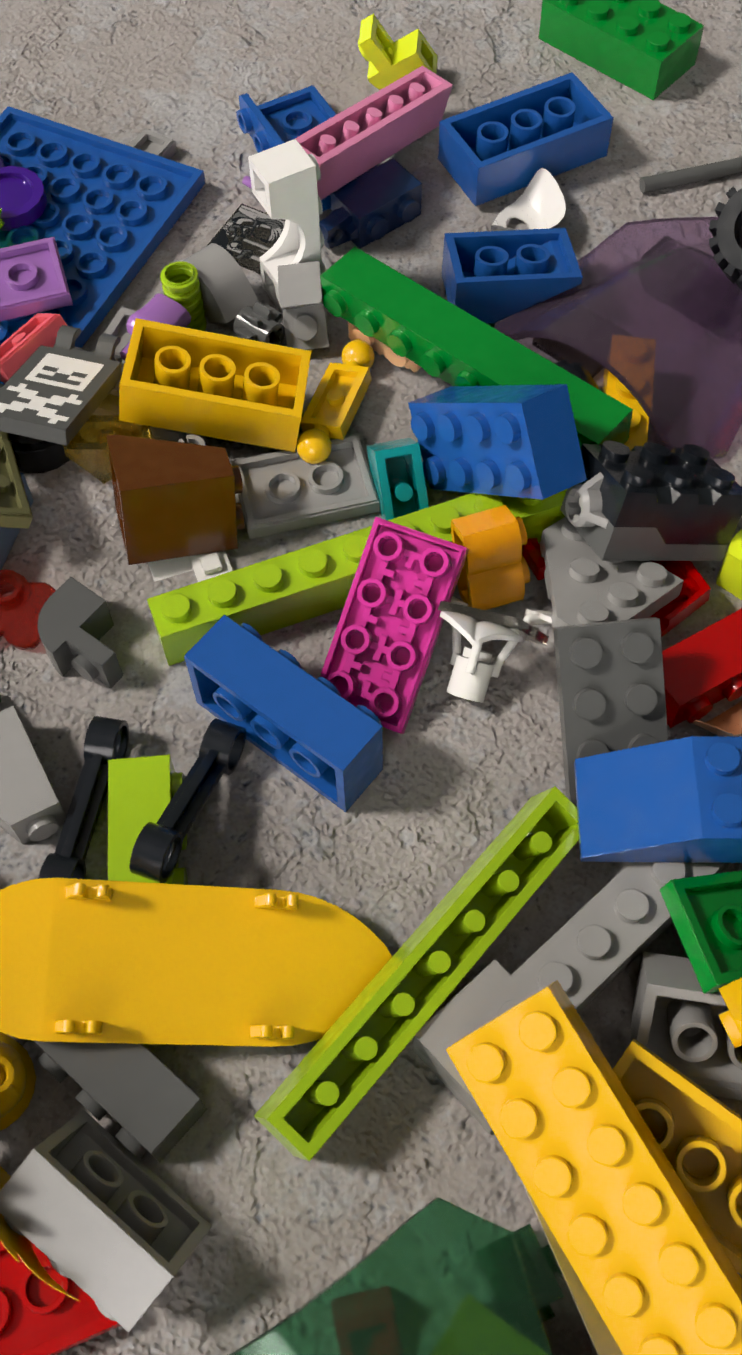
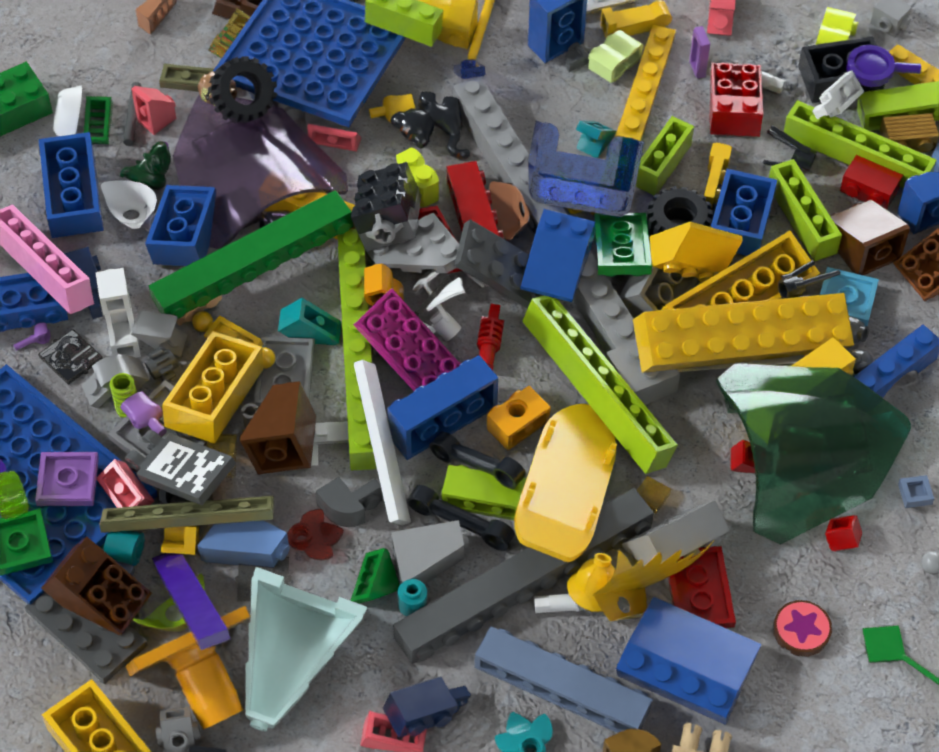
camera: 75 degrees left, 5 degrees down
(162, 644) = (382, 443): none -> white tile
(225, 1143) = (653, 493): none -> clear yellow tile
(330, 872) = (513, 430): none -> light orange brick
(478, 755) = (490, 335): none -> red hinge
(499, 440) = (325, 256): blue brick -> none
(600, 211) = (152, 169): none -> dark green hair
(653, 90) = (67, 111): none -> white piece
(679, 129) = (98, 103): none -> green slope
(707, 175) = (153, 108): none -> coral slope

